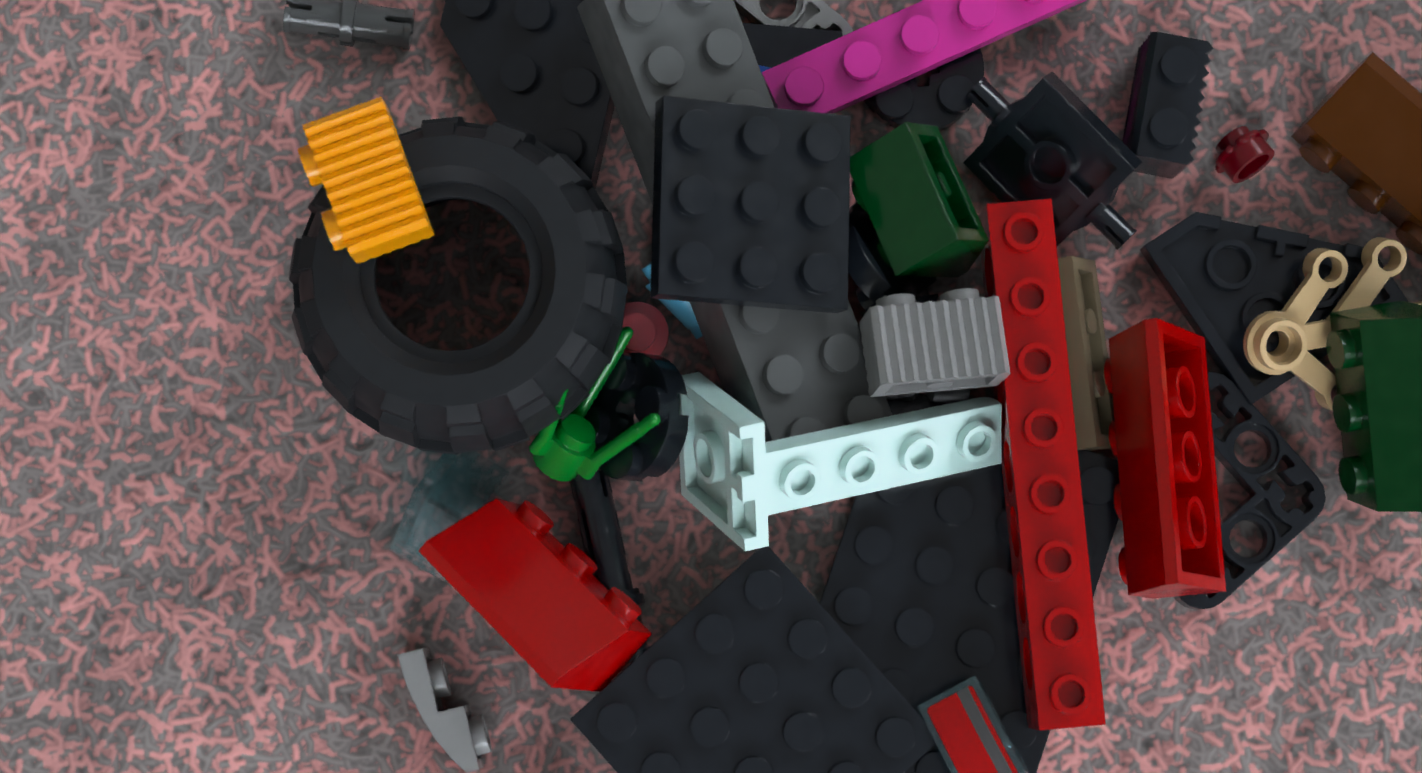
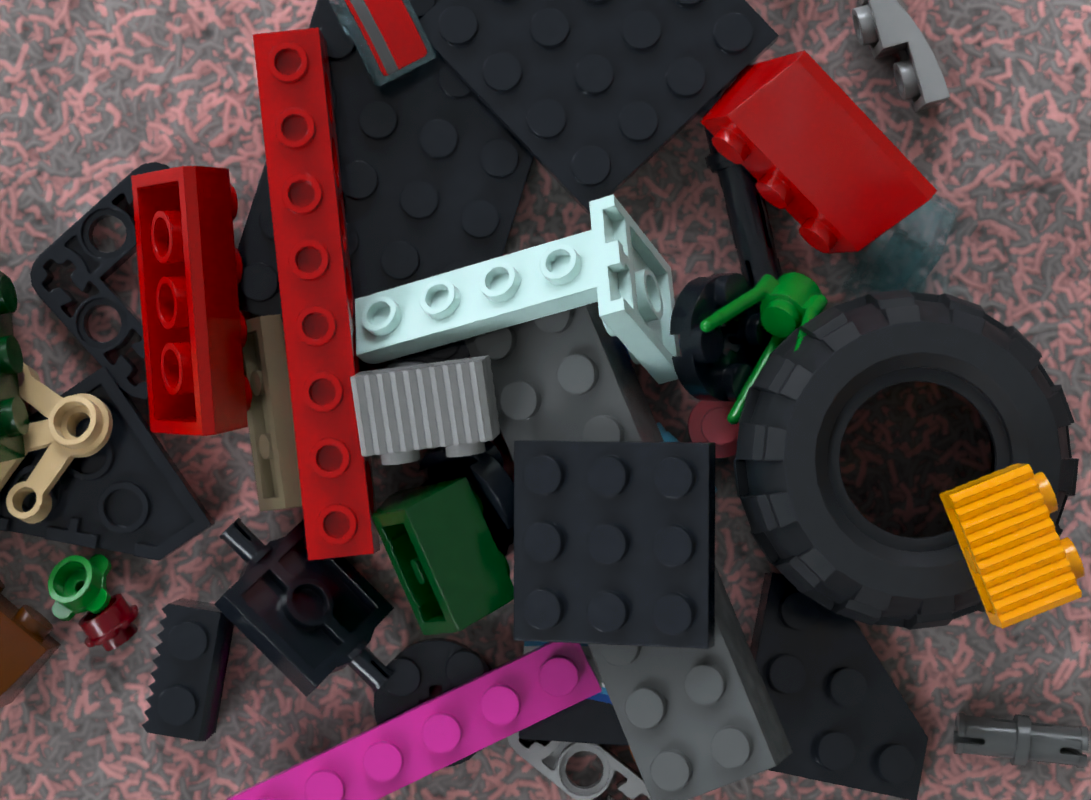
camera: 175 degrees left, 5 degrees up
(1285, 195) = (79, 586): none -> green plate

